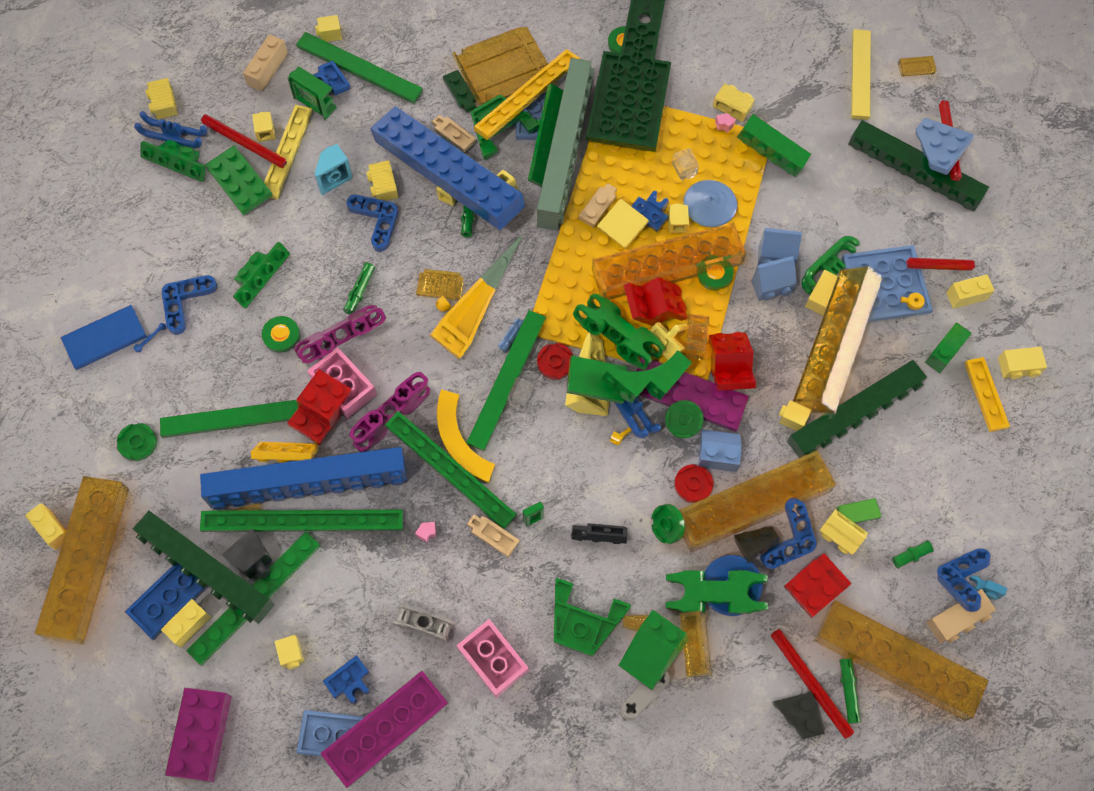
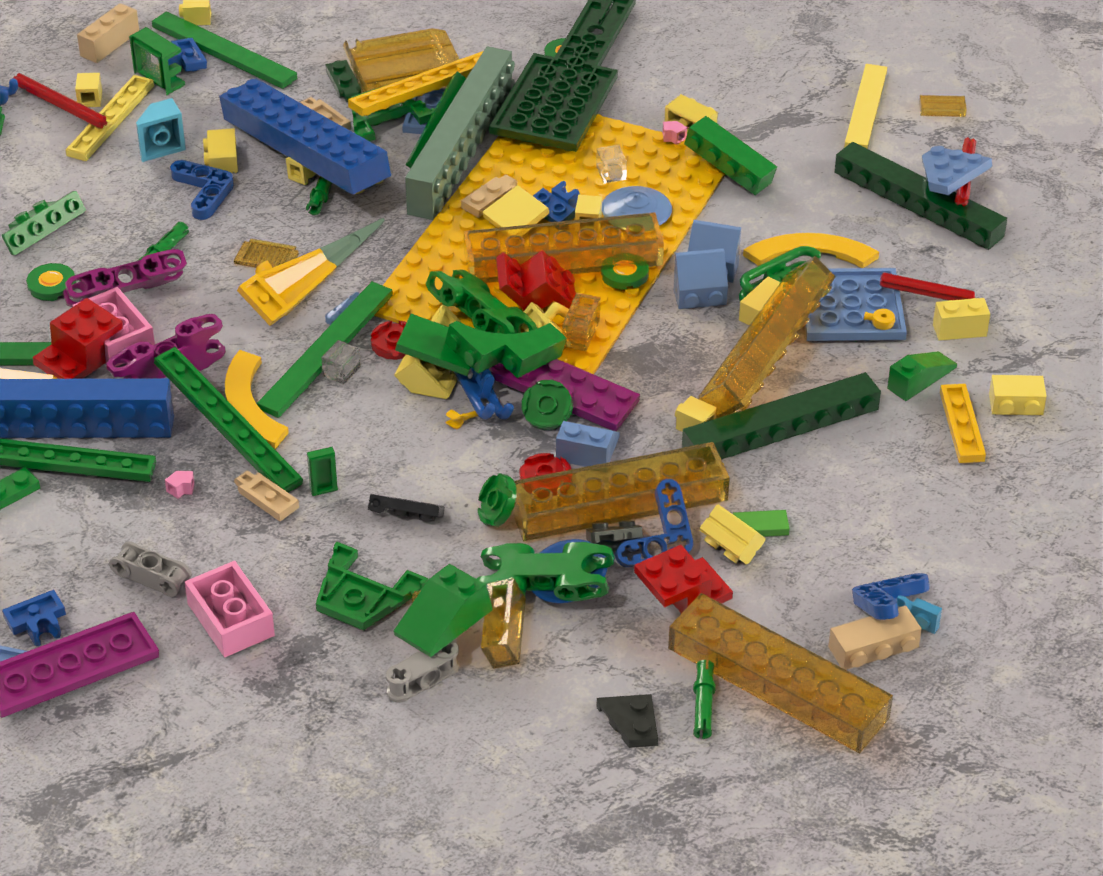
camera: 10 degrees right, 25 degrees down
(238, 180) = (42, 135): green plate -> none
(732, 361) = (623, 351): red bracket -> none
(812, 684) = (655, 688): red axle -> none
(846, 223) = (842, 247): none -> yellow tile
(912, 554) = (823, 570): green pin -> none

